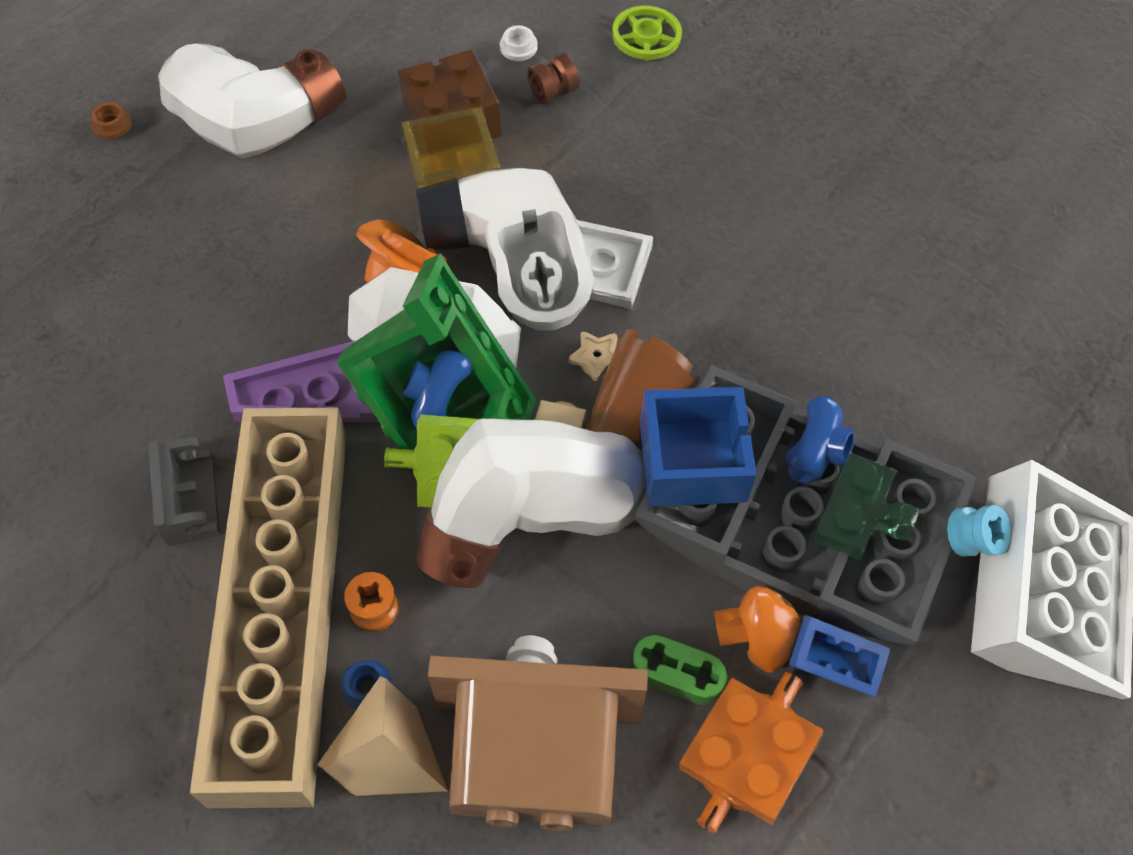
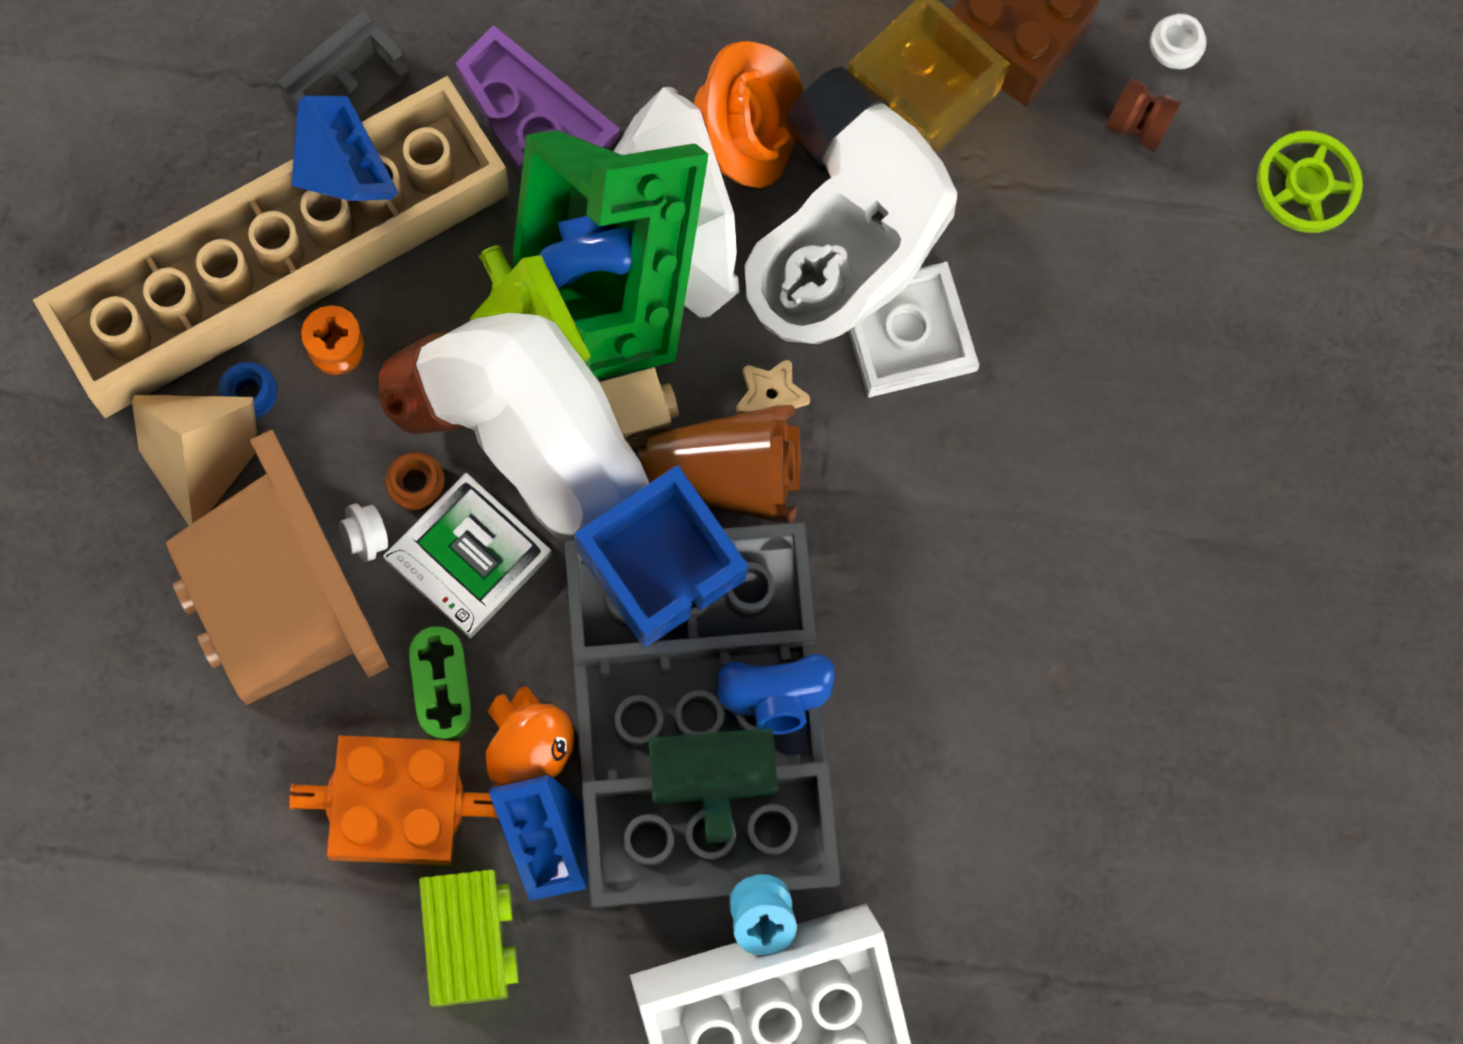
camera: 50 degrees right, 15 degrees up
(246, 505) = (336, 153): none -> blue slope
(511, 592) = (409, 465): none -> dark orange plate
(592, 601) = (467, 555): none -> white tile
(890, 753) = (466, 938): none -> lime brick

